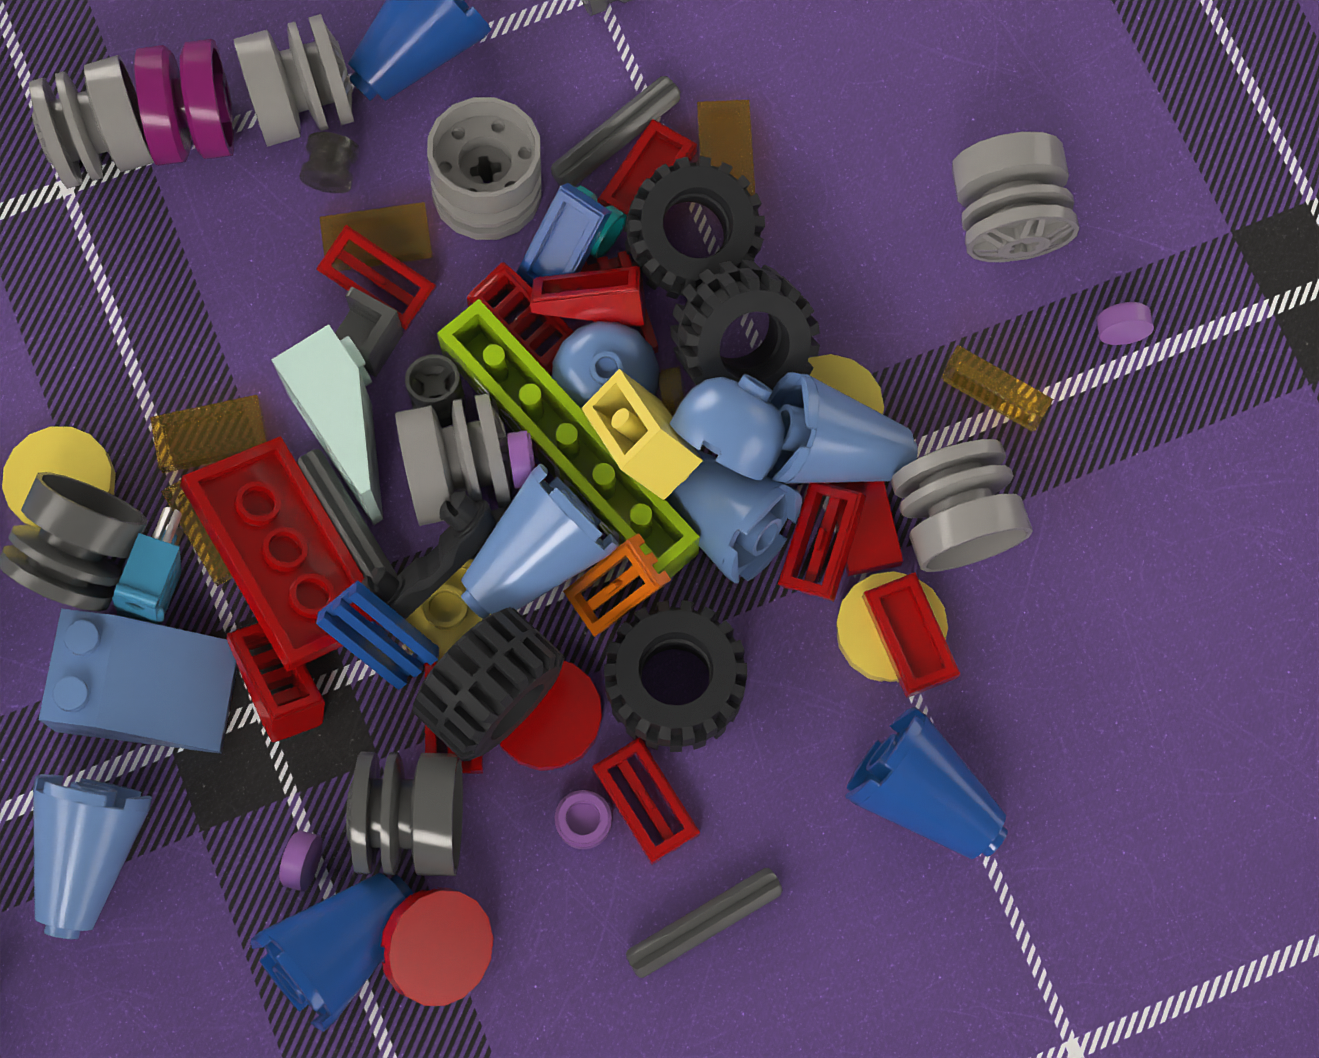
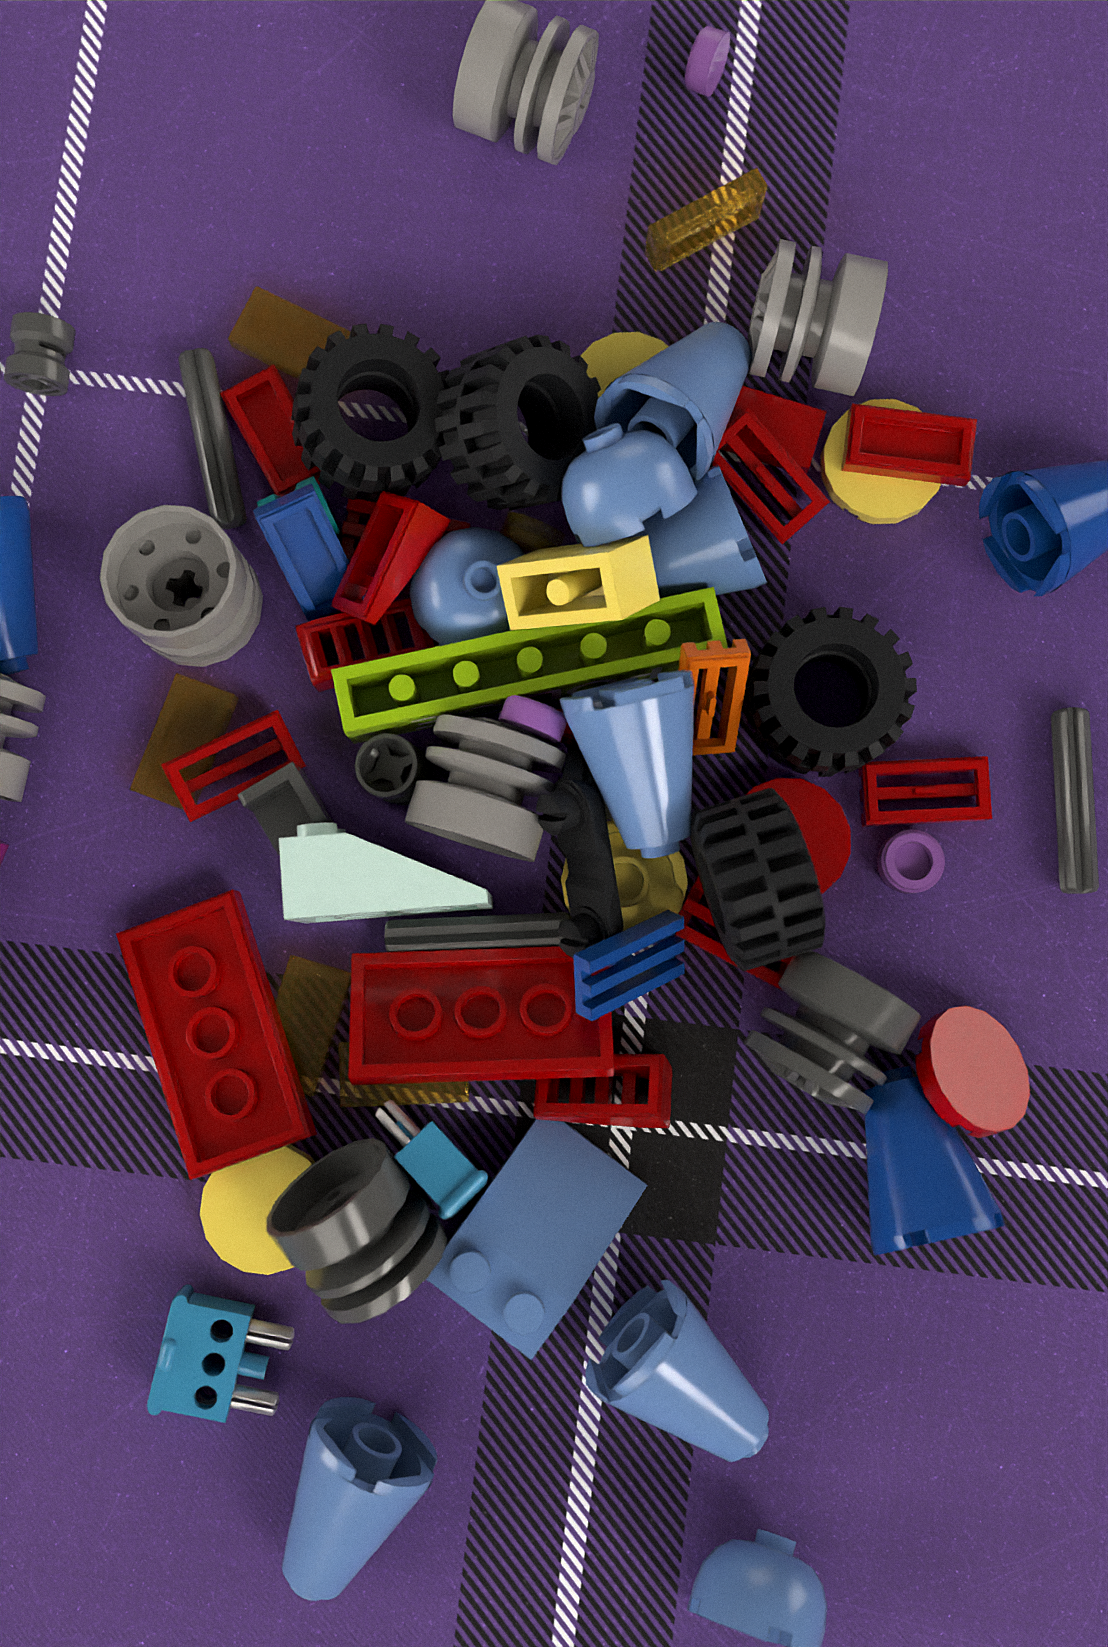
camera: 60 degrees left, 10 degrees up
(168, 373) = (215, 1034): none -> red tile
(300, 860) = (808, 1161): medium lavender tile -> none
(329, 162) = (75, 746): clear smoke wheel -> none

